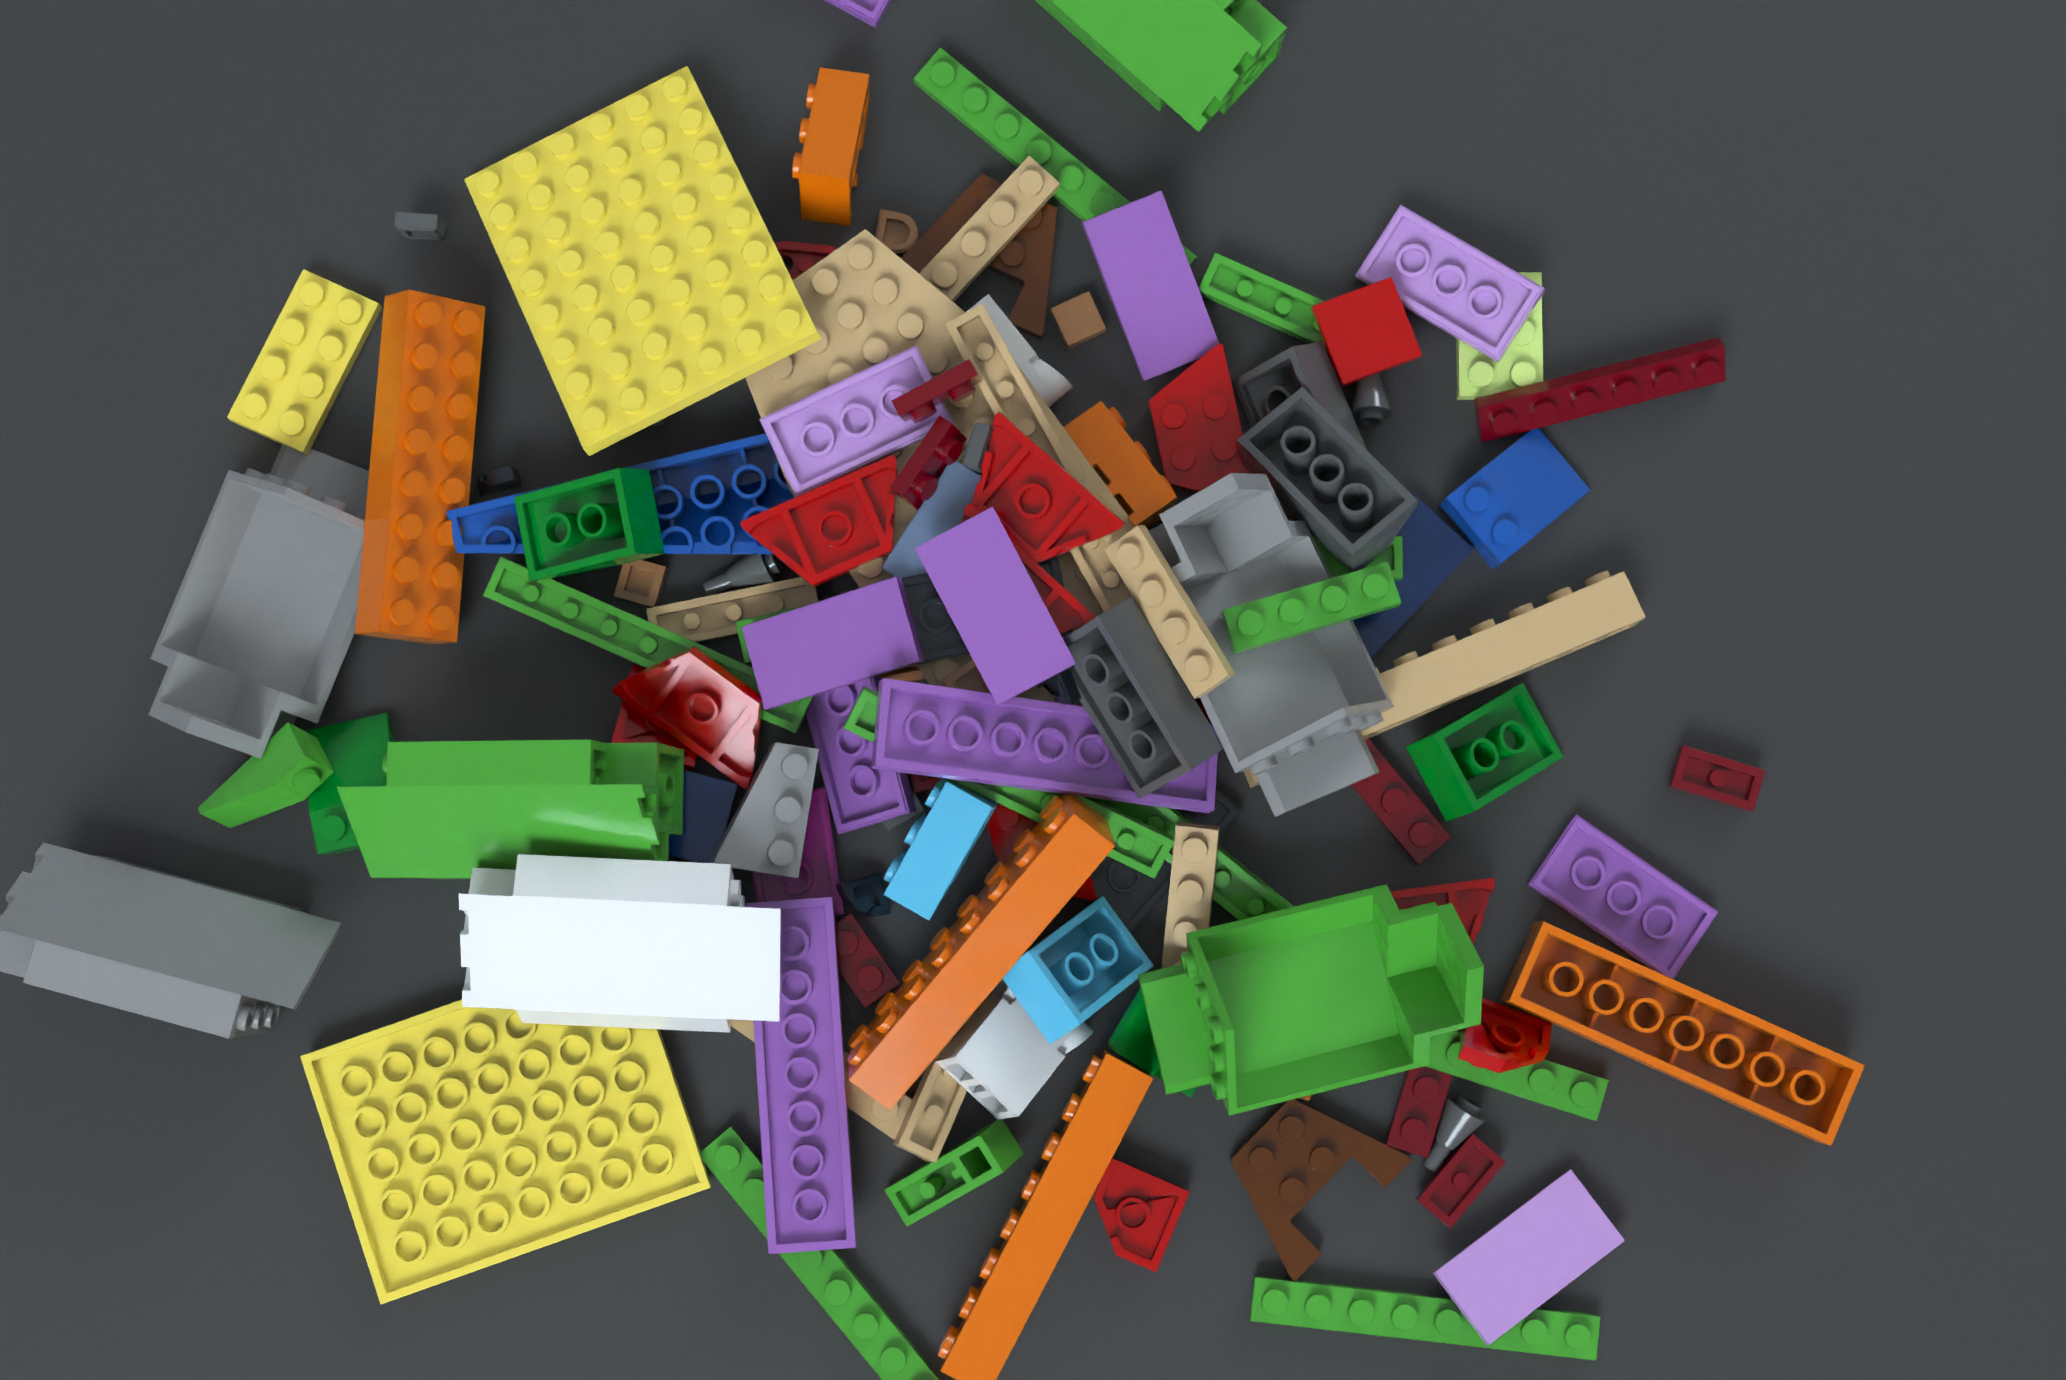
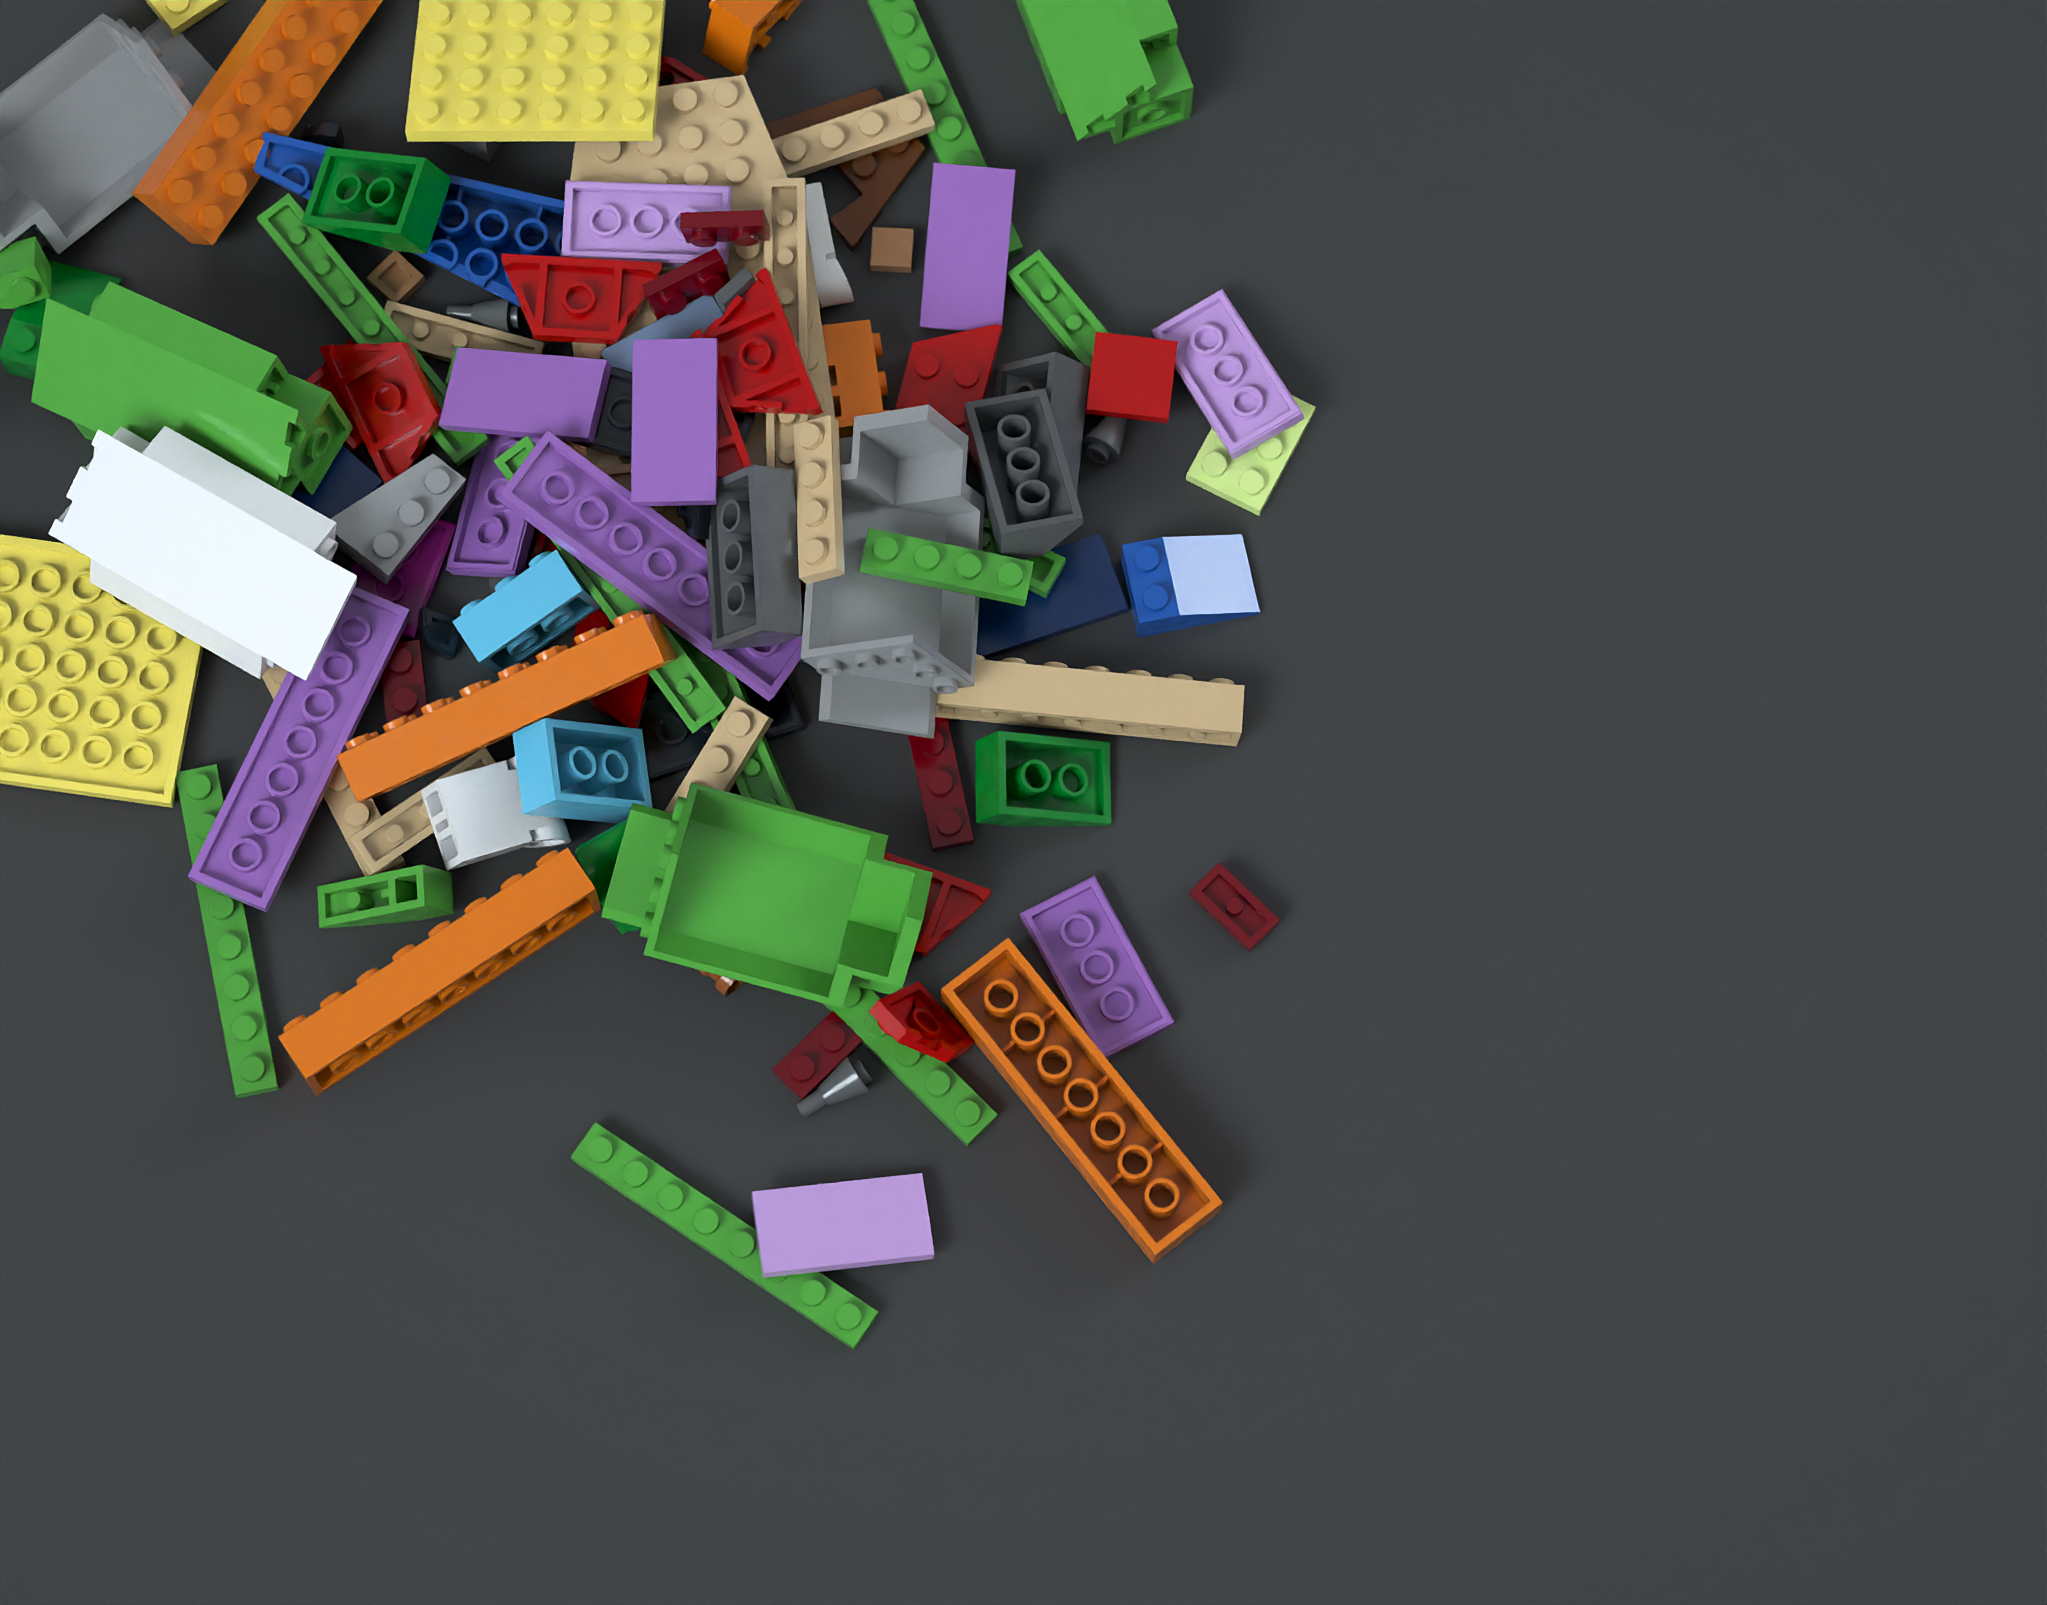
camera: 25 degrees right, 10 degrees down
(896, 231) = (775, 100): medium nougat tile -> none
(1138, 1212) = (525, 1014): red plate -> none
(1292, 1161) = (684, 1043): reddish brown wing -> none
(1460, 1180) = (820, 1132): dark red plate -> none
(1600, 389) = (1312, 529): dark red plate -> none

